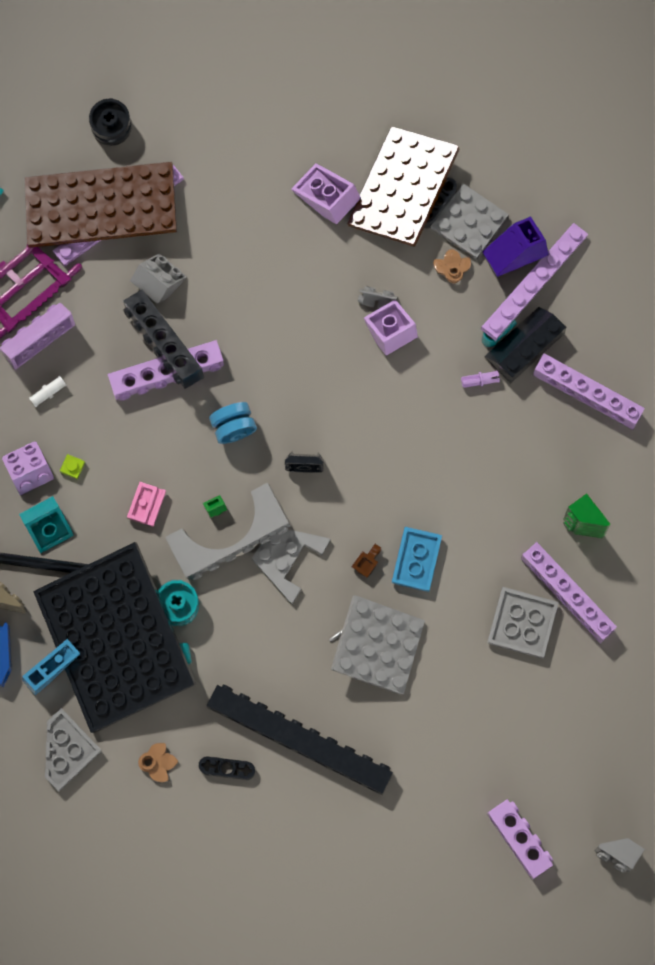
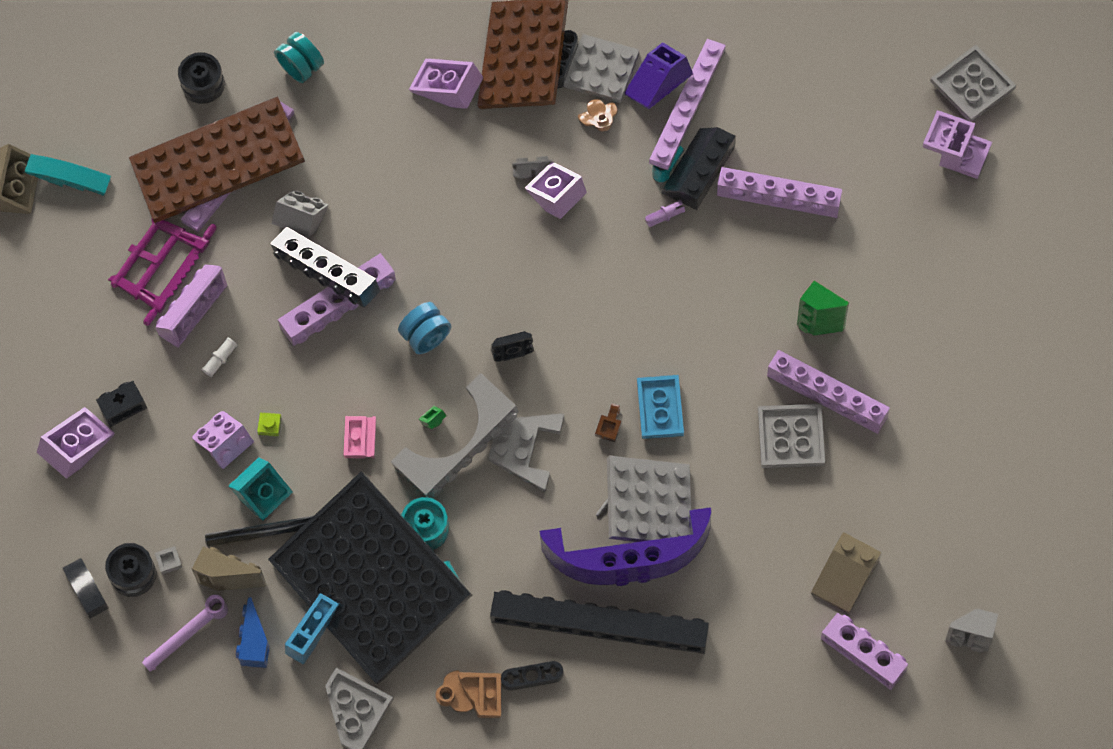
camera: 15 degrees left, 10 degrees down
(180, 771) = (483, 692): none -> medium nougat wing
(202, 130) = (299, 57): none -> teal wheel
(309, 687) = (628, 561): none -> dark purple slope
(528, 763) = (846, 572): none -> dark tan slope

